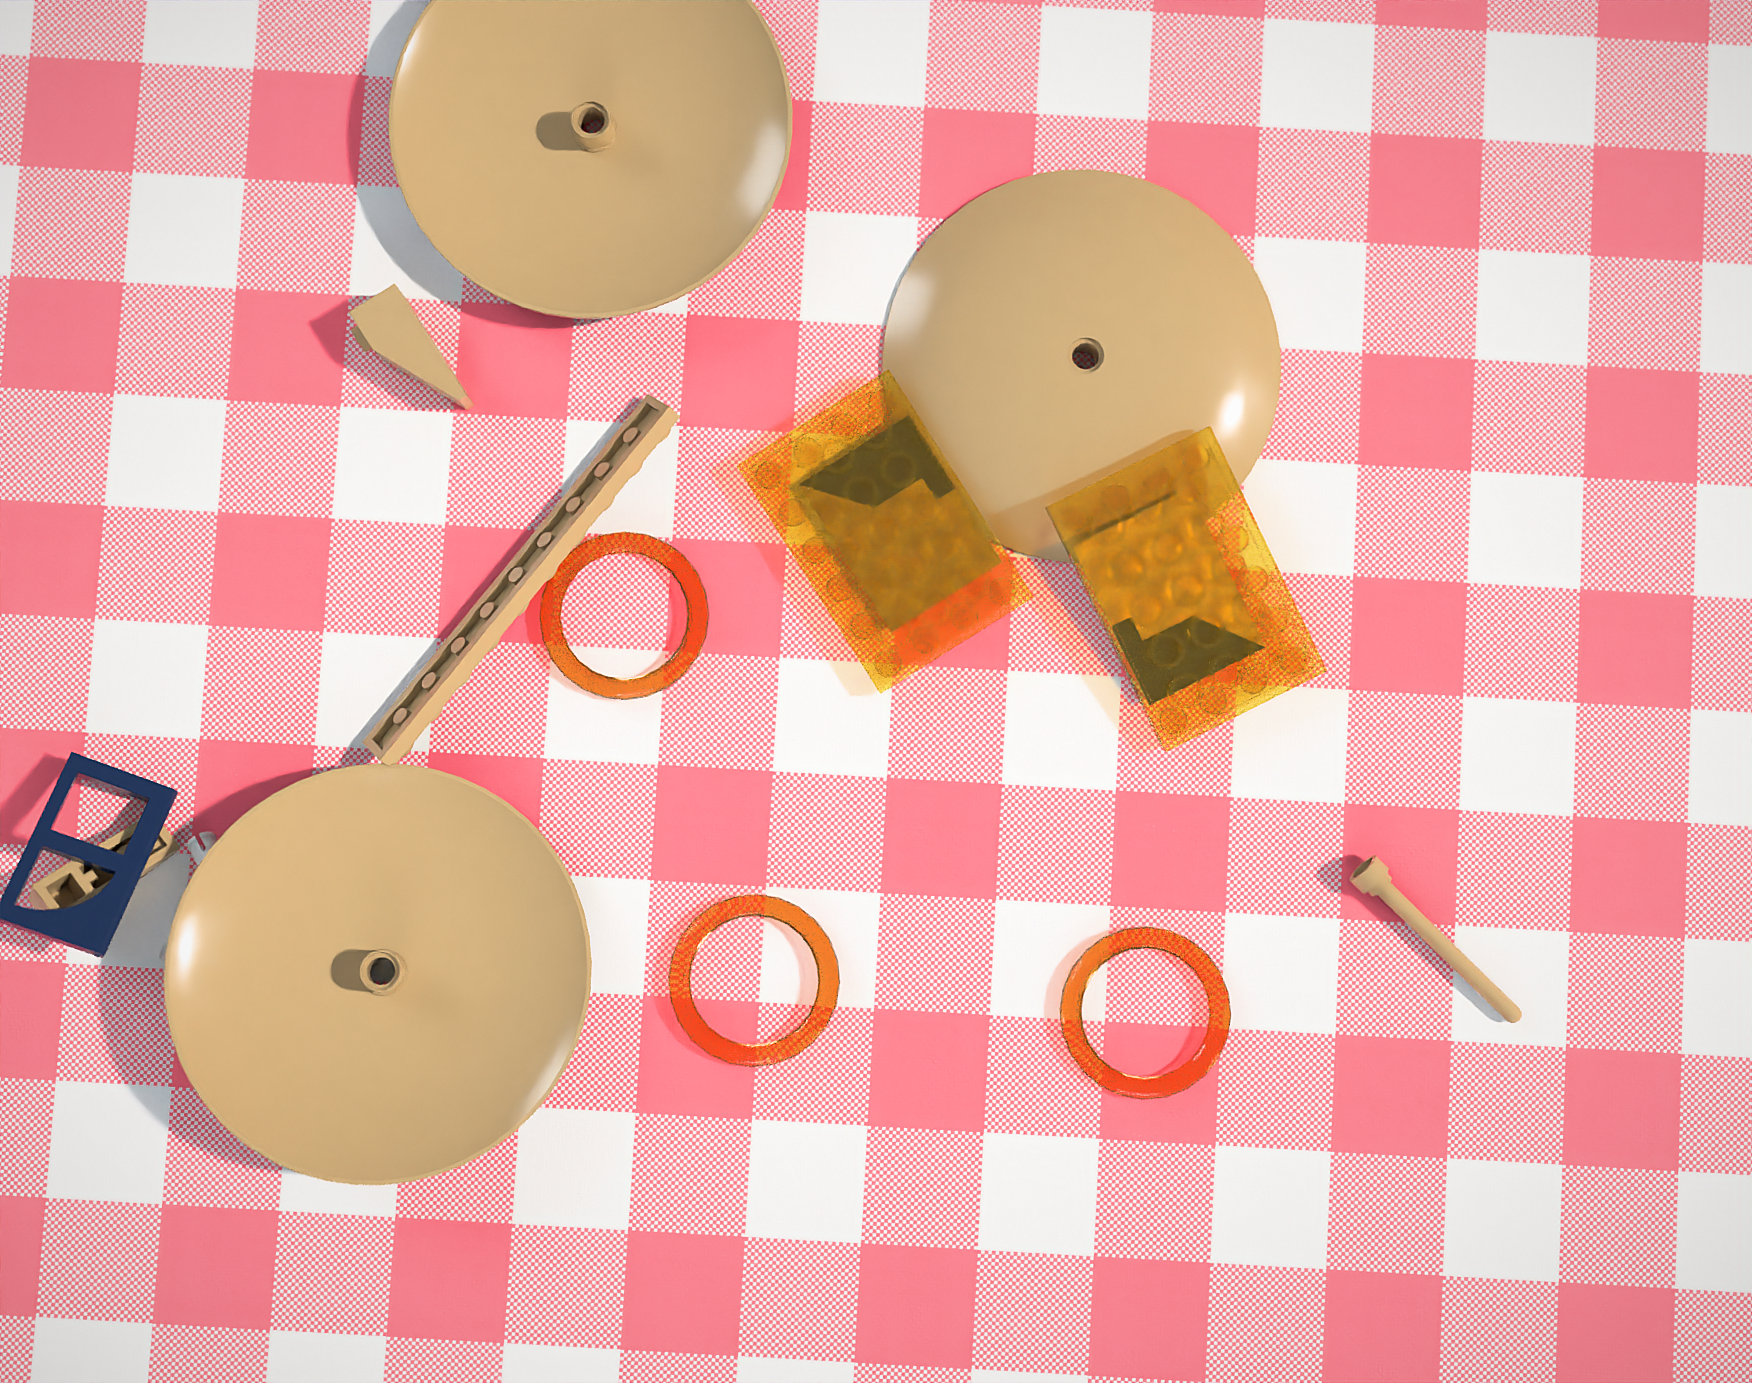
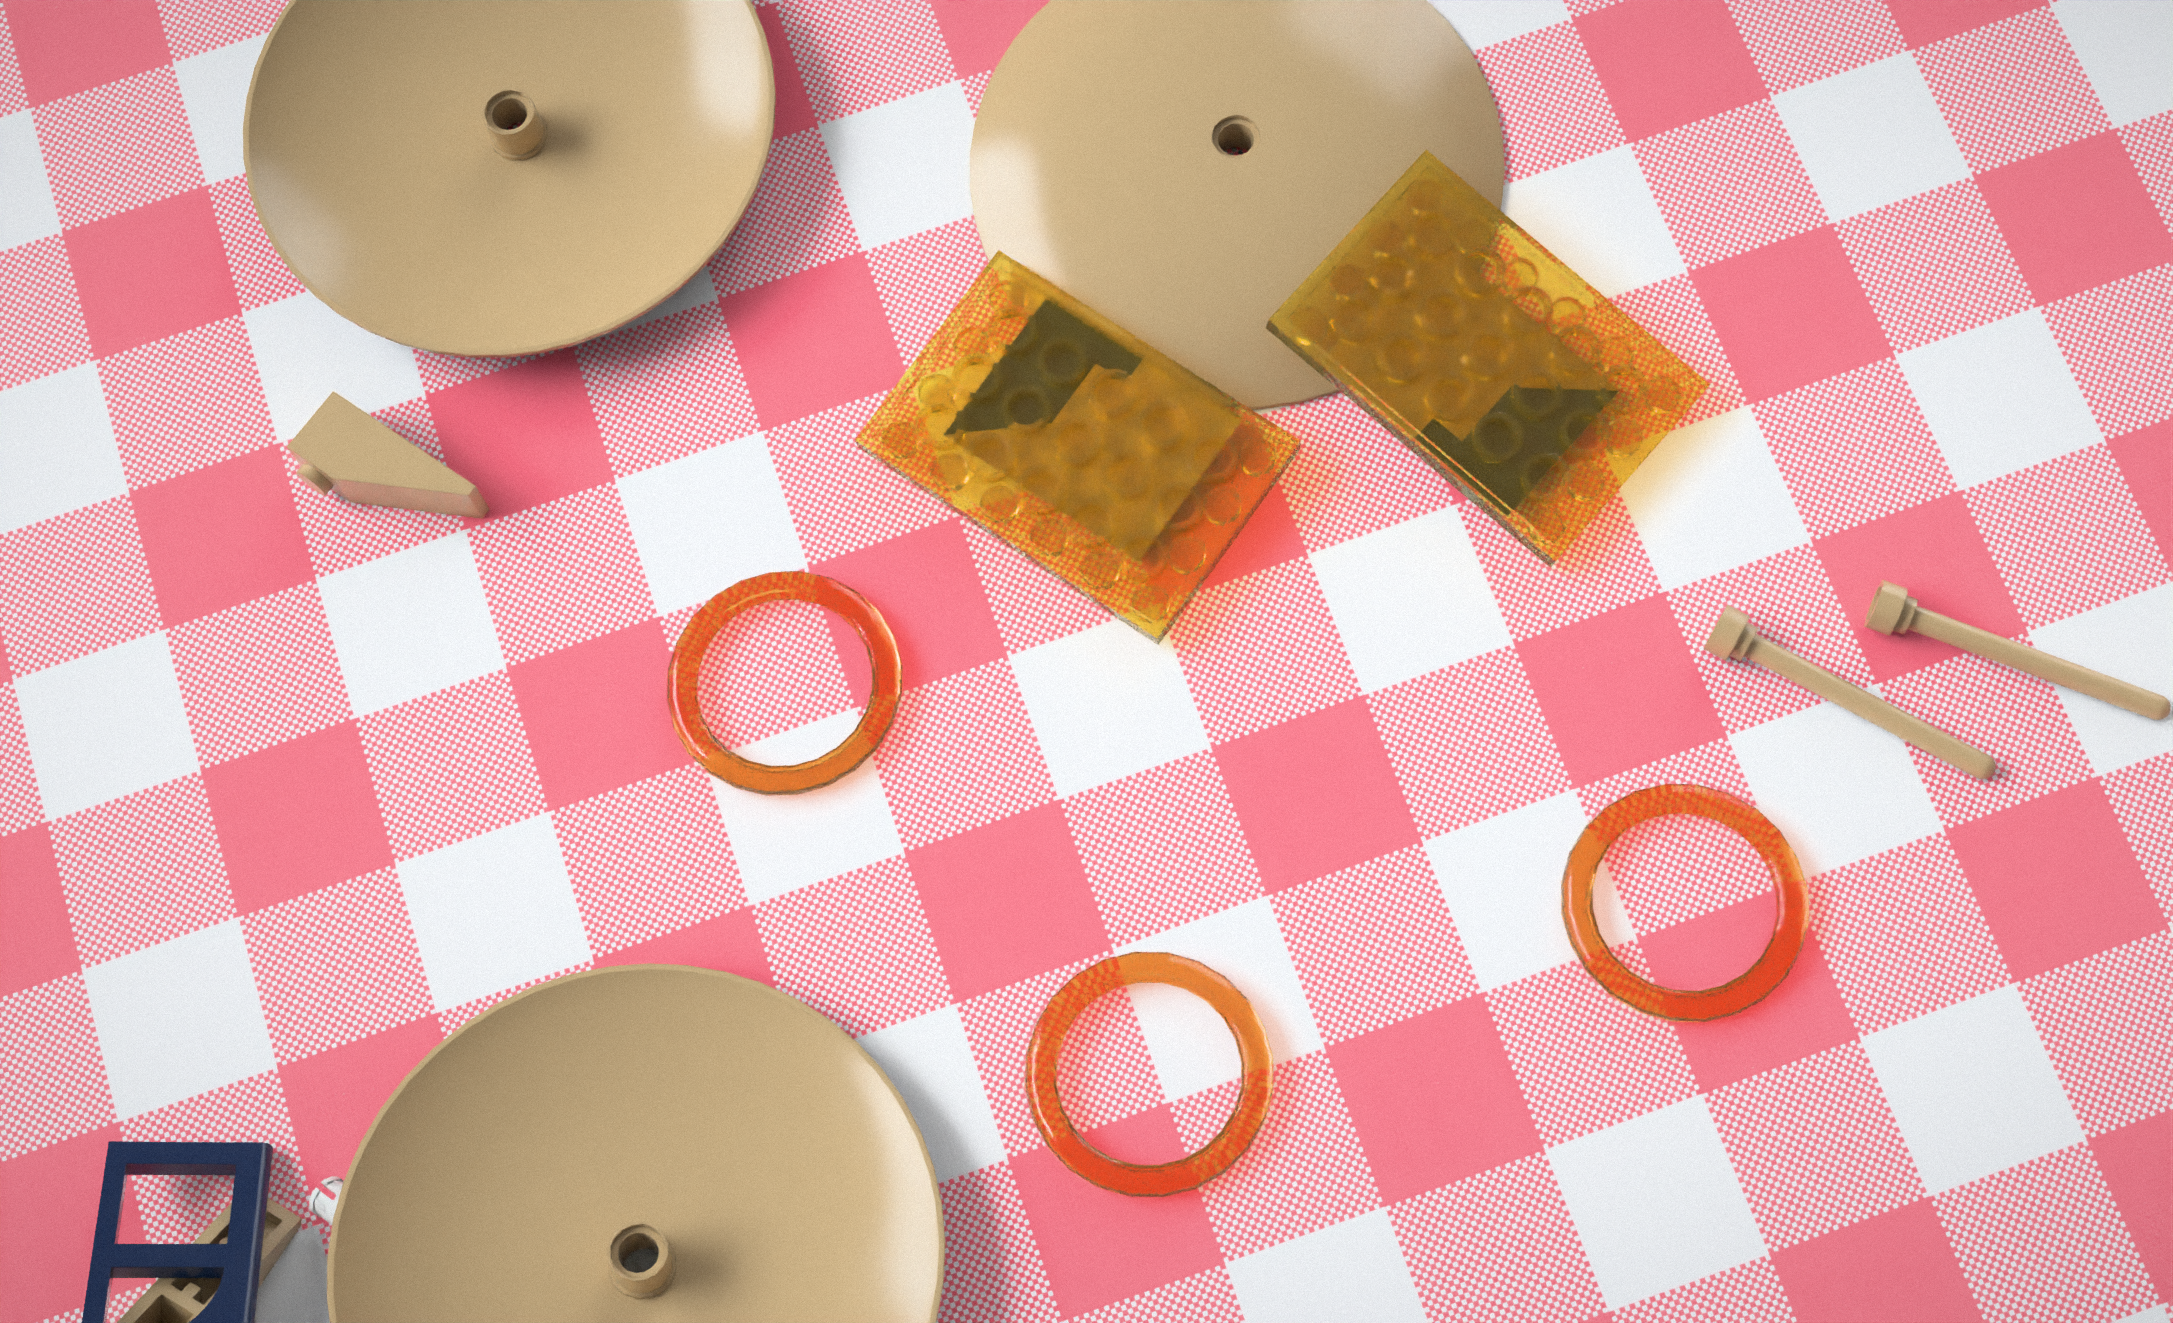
camera: 10 degrees left, 15 degrees down
(520, 580) = (628, 698): tan plate -> none
(1261, 853) = (1738, 638): none -> tan piece

